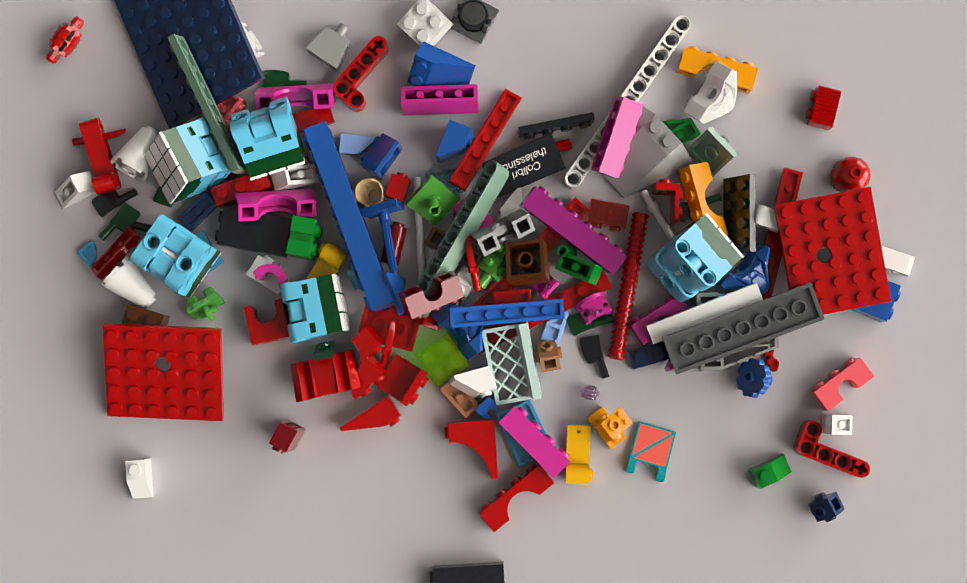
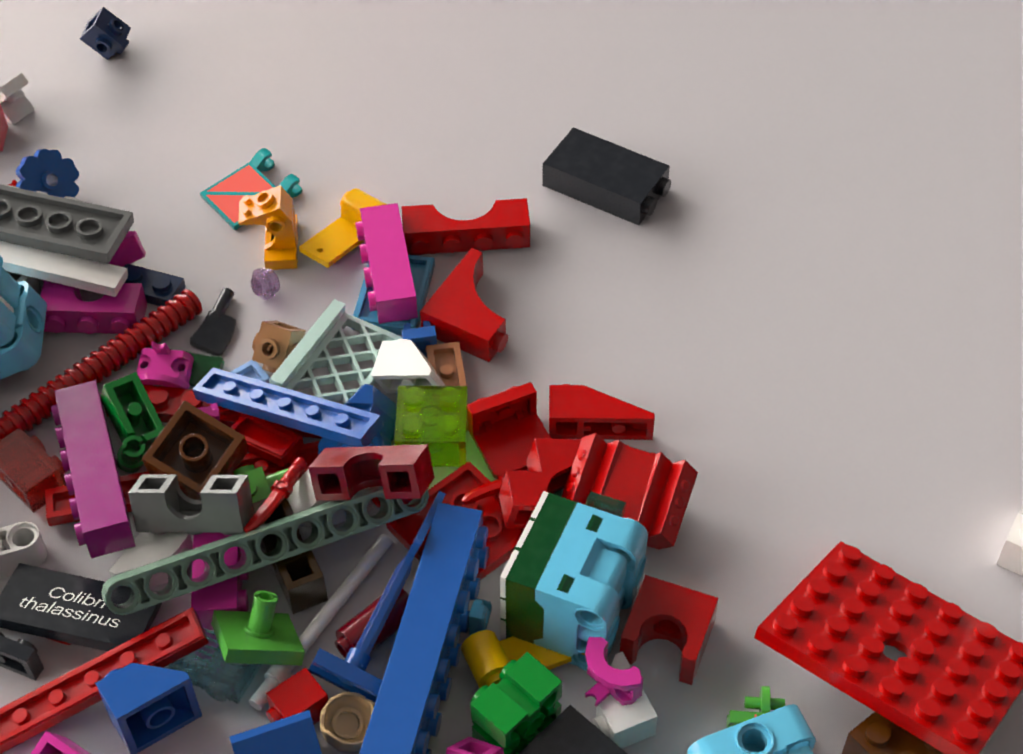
camera: 150 degrees left, 35 degrees down
(286, 436) = (742, 438): dark red brick -> none
(770, 471) = (135, 96): green slope -> none
(831, 454) = (58, 91): red beam -> none

